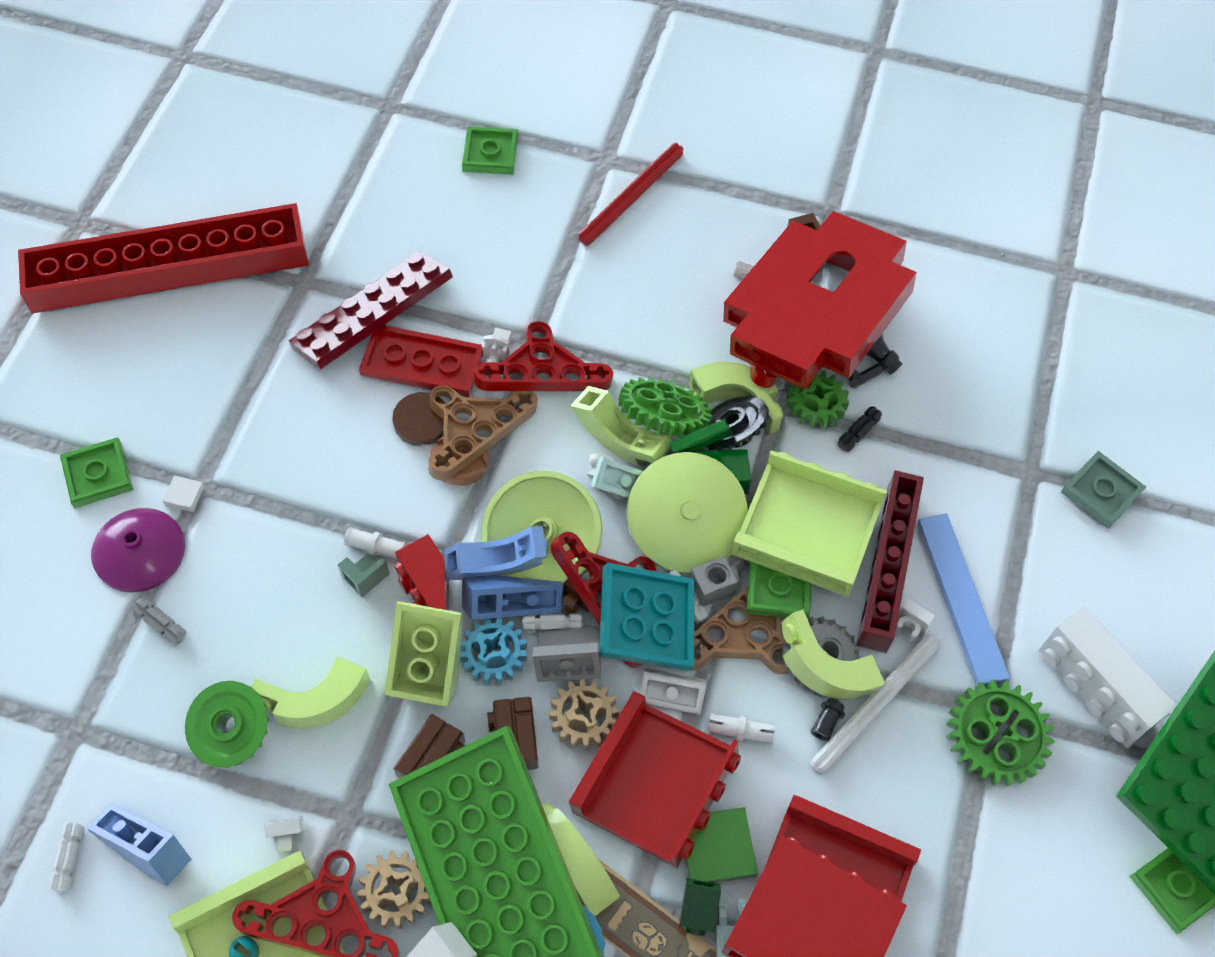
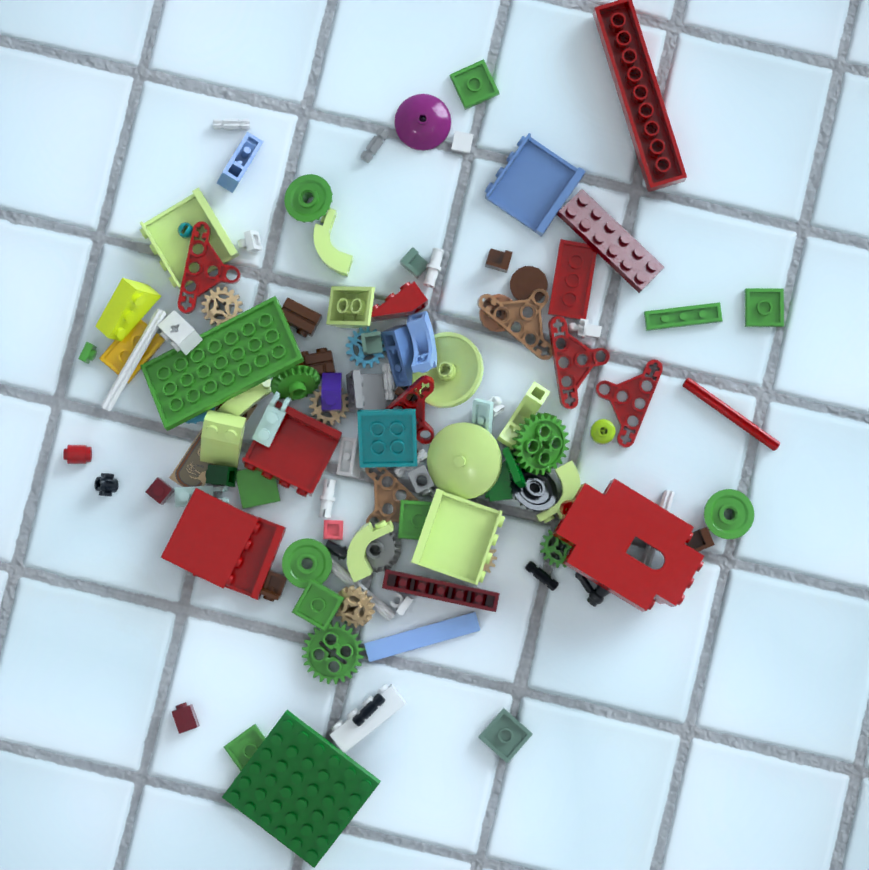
camera: 90 degrees right, 25 degrees up
(272, 400) = (533, 185): none -> medium blue panel
(379, 452) = (498, 260): none -> reddish brown panel
(488, 631) = (371, 343): none -> sand green panel
(491, 238) = (683, 316): none -> bright green tile
(546, 759) = (296, 382): none -> bright green gear
(566, 696) = (331, 392): none -> dark purple slope
(608, 805) = (271, 421): none -> light aqua hinge
(617, 310) = (633, 389): none -> red beam
(635, 893) = (222, 438): none -> yellowish green slope
(649, 334) = (603, 438): none -> lime head
(770, 197) = (742, 514): none -> bright green gear
(793, 724) = (333, 529): none -> coral tile
(867, 749) = (293, 562): none -> bright green gear
(895, 822) = (273, 586): none -> reddish brown bracket
(924, 746) = (318, 604): none -> bright green tile
(925, 694) = (355, 607): none -> tan gear
(1102, 659) = (368, 710): none -> black axle

